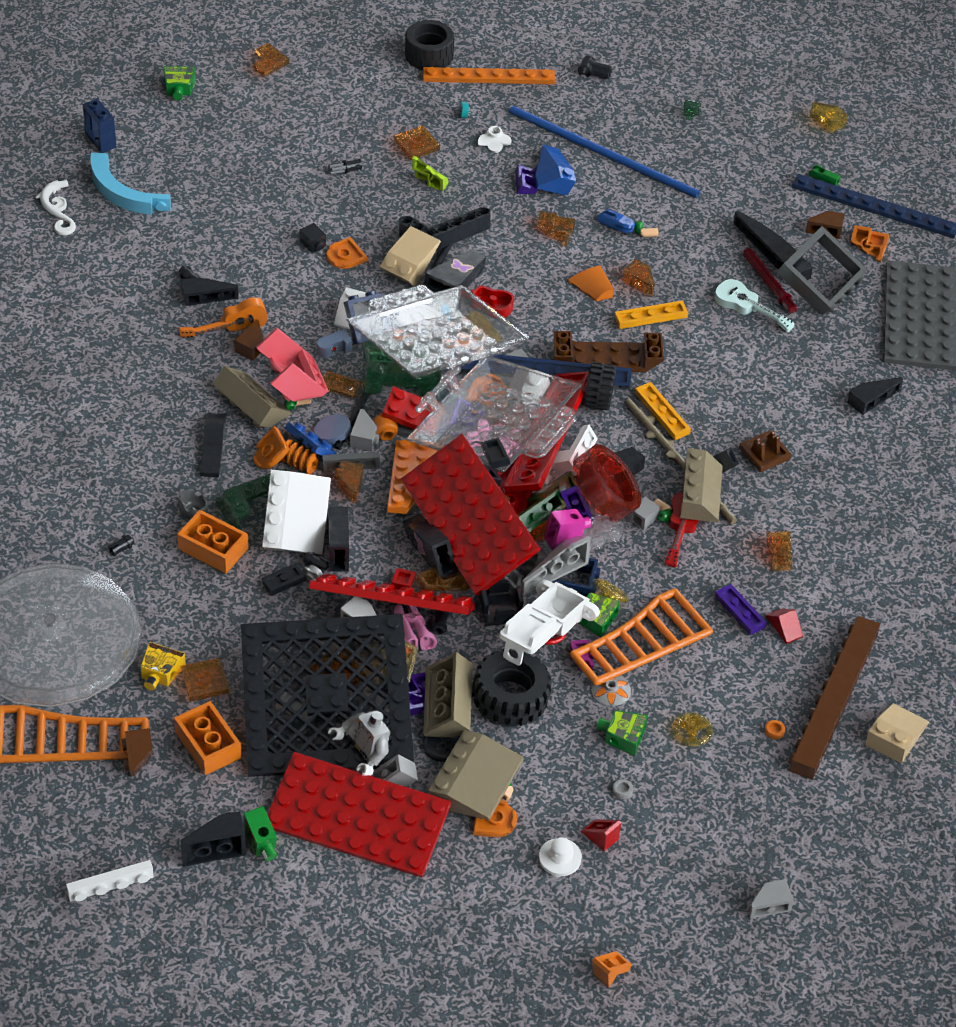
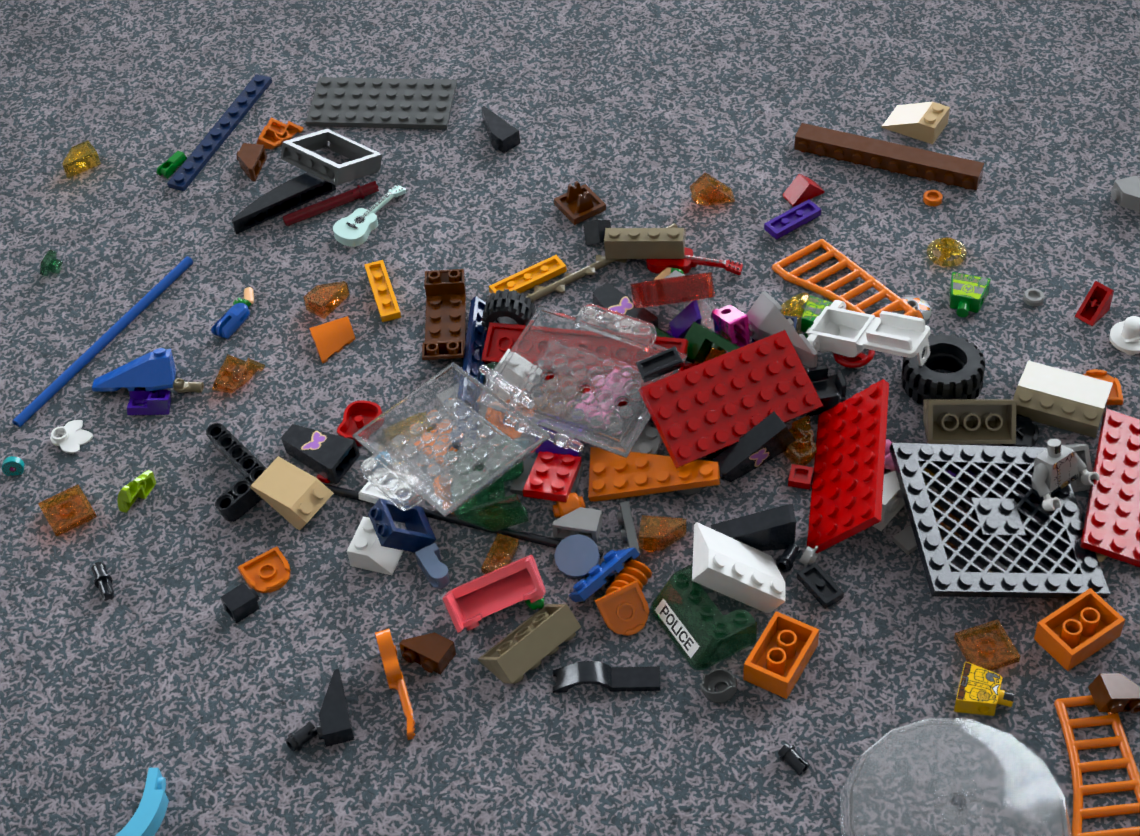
camera: 85 degrees left, 0 degrees up
(543, 199) = (183, 387): none -> dark tan arm

